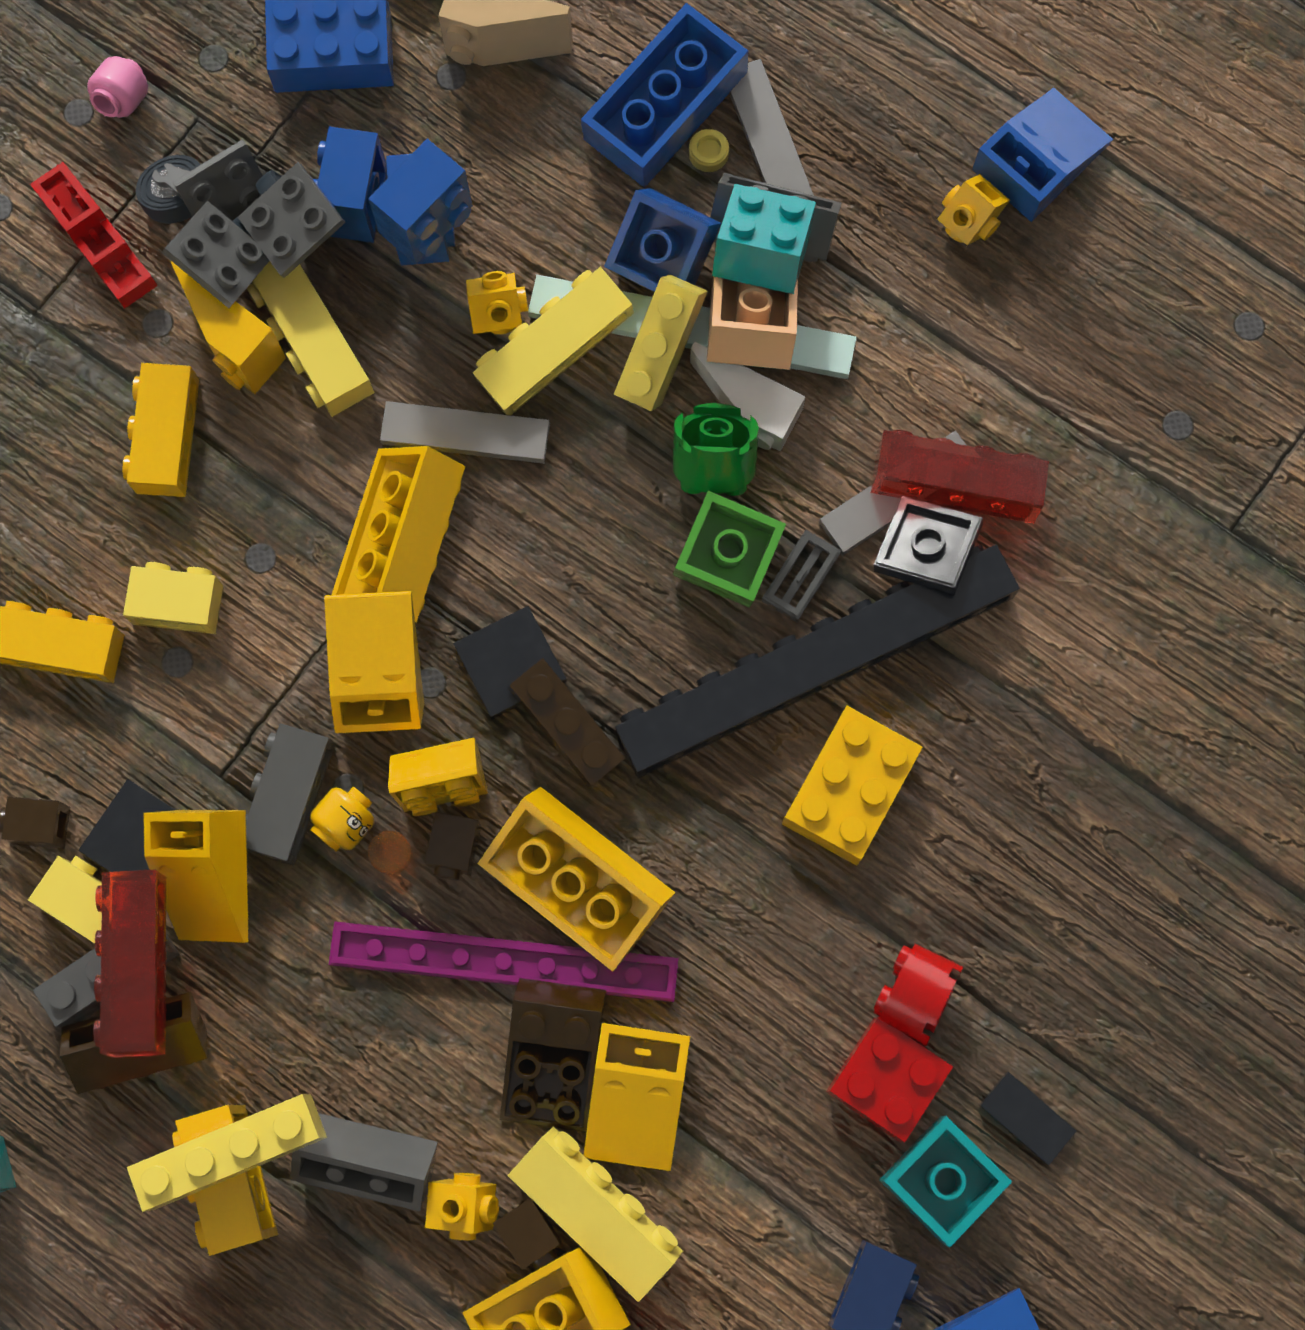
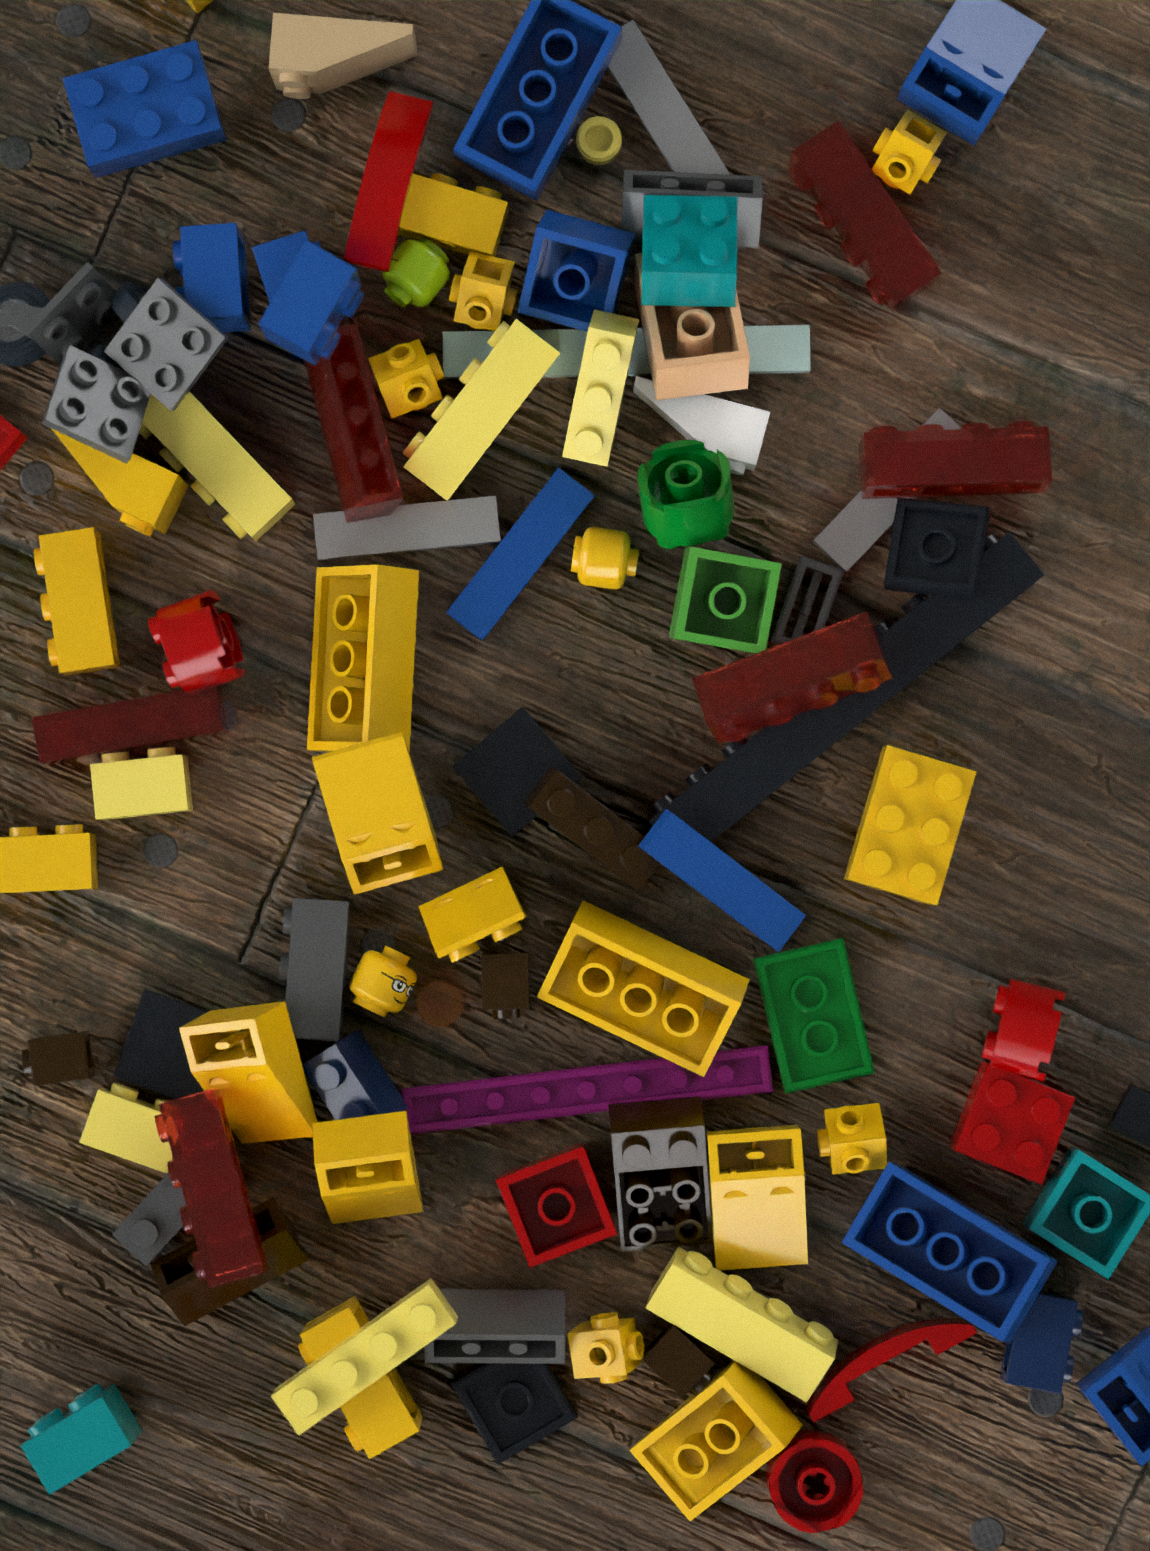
camera: 15 degrees left, 10 degrees up
(178, 542) = (130, 725): none -> clear red brick
(254, 484) = (197, 643): none -> red brick
(279, 982) = (366, 1167): none -> yellow slope
(291, 907) = (353, 1080): none -> dark blue brick
(365, 1242) = (513, 1405): none -> black tile
(438, 331) = (354, 430): none -> clear red brick
(448, 1058) = (556, 1205): none -> red brick
(516, 137) = (387, 181): none -> red slope
(525, 220) = (416, 273): none -> lime head
(554, 174) = (453, 215): none -> yellow brick
(558, 476) = (520, 554): none -> blue tile
(579, 245) = (483, 291): none -> yellow brick
(630, 492) = (604, 558): none -> yellow head
(670, 794) = (722, 880): none -> blue tile
(727, 941) = (813, 1015): none -> green tile
(738, 1061) = (853, 1139): none -> yellow brick
(773, 626) = (792, 678): none -> clear red brick
(777, 1265) = (939, 1333): none -> red slope
(805, 1187) = (949, 1252): none -> blue brick
(923, 257) = (864, 217): none -> clear red brick

